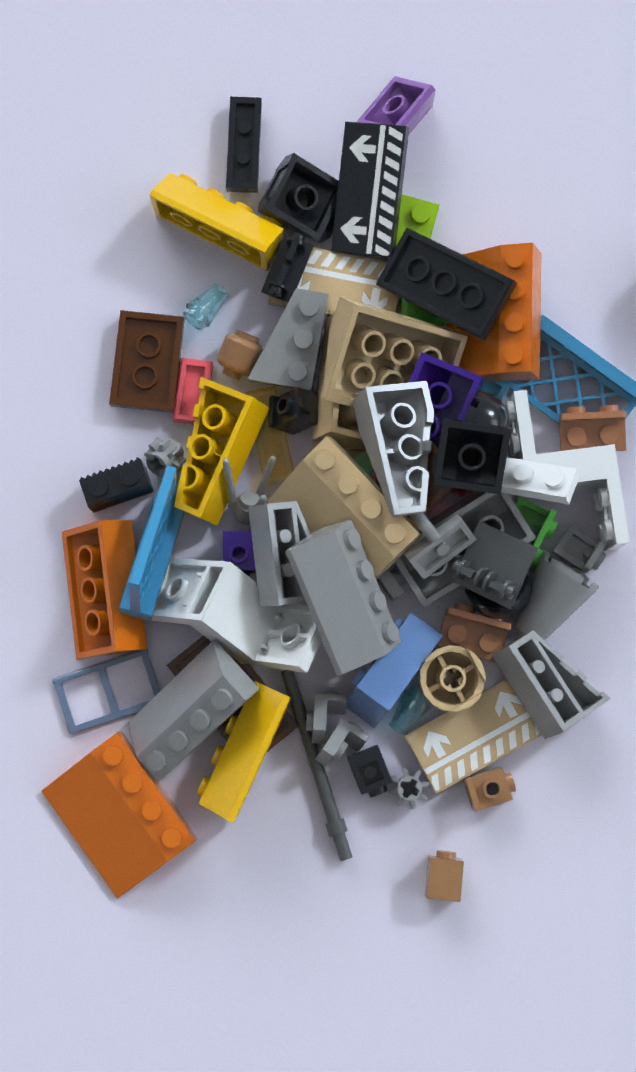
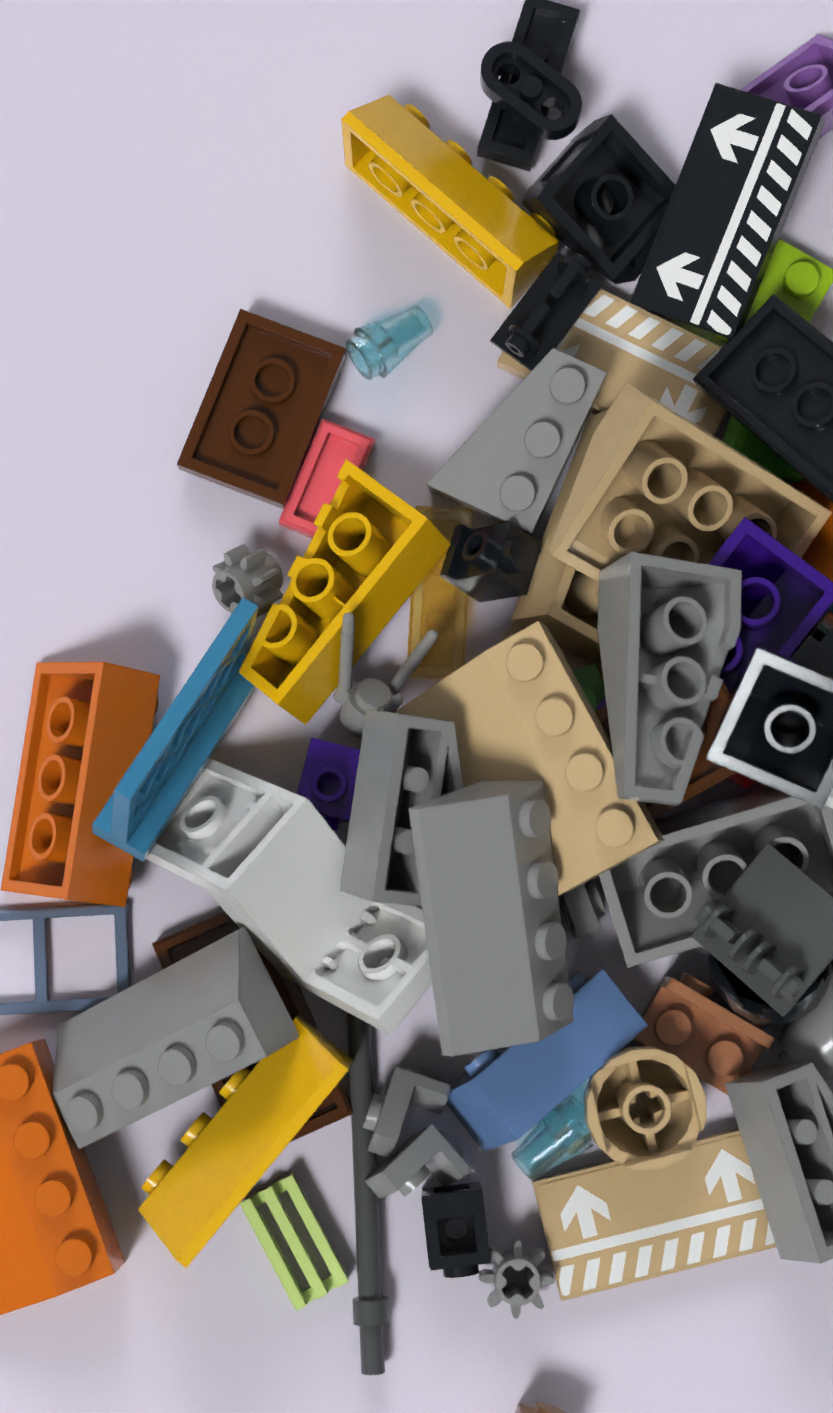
camera: 15 degrees right, 0 degrees up
(116, 485) = (149, 608): black brick -> none
(238, 354) = (423, 437): medium nougat head -> none
(248, 150) = (536, 89): none -> black plate
(305, 823) = (318, 1286): none -> yellowish green tile
(438, 544) = (686, 865): light grey plate -> none
(476, 788) = (641, 1302): medium nougat brick -> none

